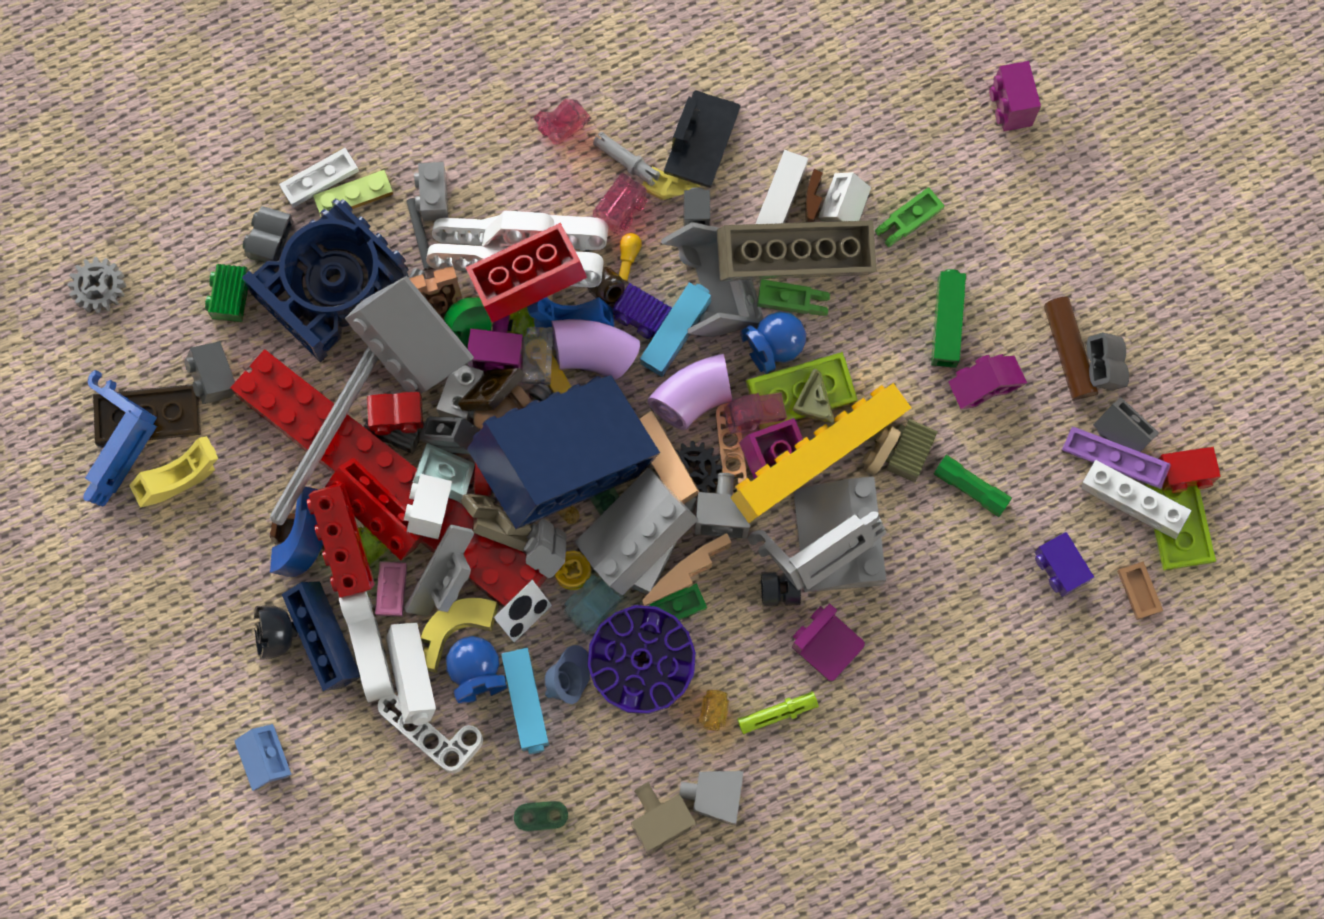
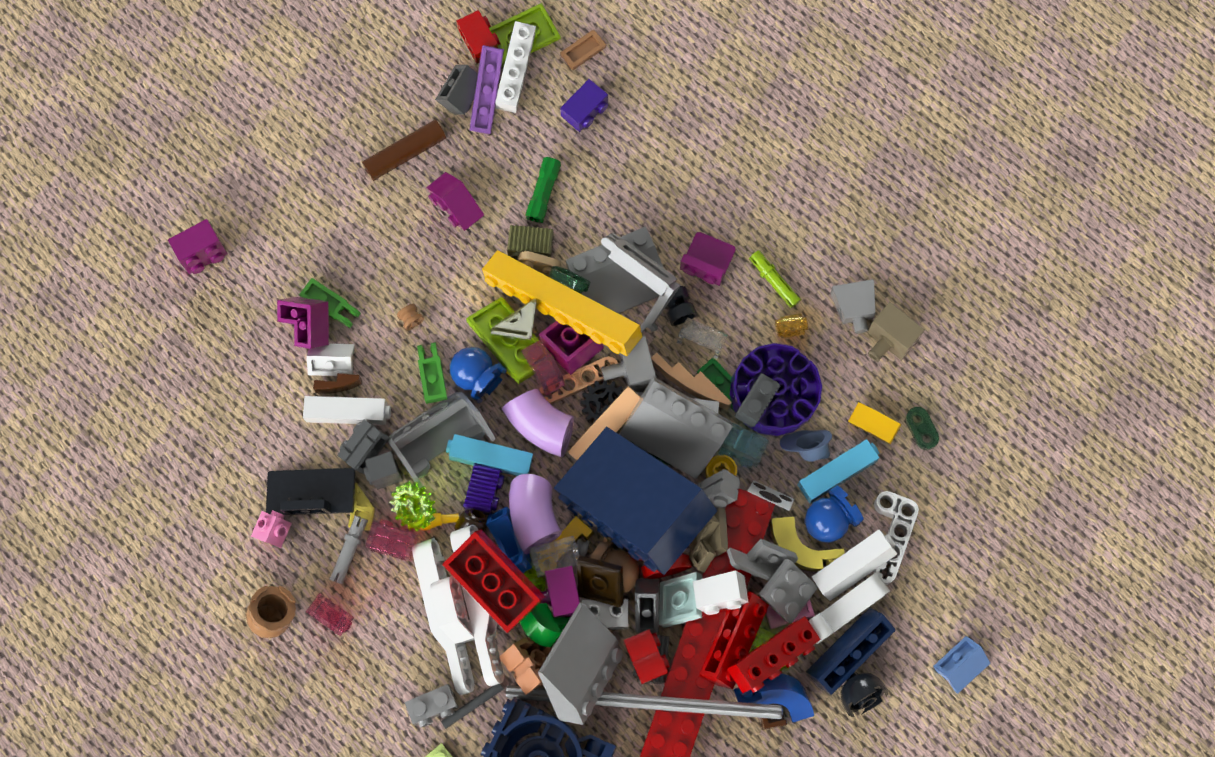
camera: 105 degrees left, 0 degrees up
(408, 587) = (788, 590): none -> light grey plate
(565, 762) = (874, 423): none -> yellow slope
(585, 49) = (270, 611): none -> medium nougat tile
(628, 622) = (757, 400): none -> dark grey brick
(645, 228) = (413, 506): none -> clear neon green gear
(674, 88) = (271, 528): none -> bright pink brick
(732, 201) = (362, 445): none -> dark grey brick
(732, 601) = (703, 336): none -> clear hinge
(796, 250) = (394, 377): dark tan brick -> none
(846, 470) = (570, 279): none -> clear green plate
(865, 295) = (410, 317): none -> medium nougat wheel
(894, 185) = (309, 320): none -> magenta brick
(948, 318) = (409, 246): green brick -> none
(1107, 360) = (405, 118): dark grey brick -> none

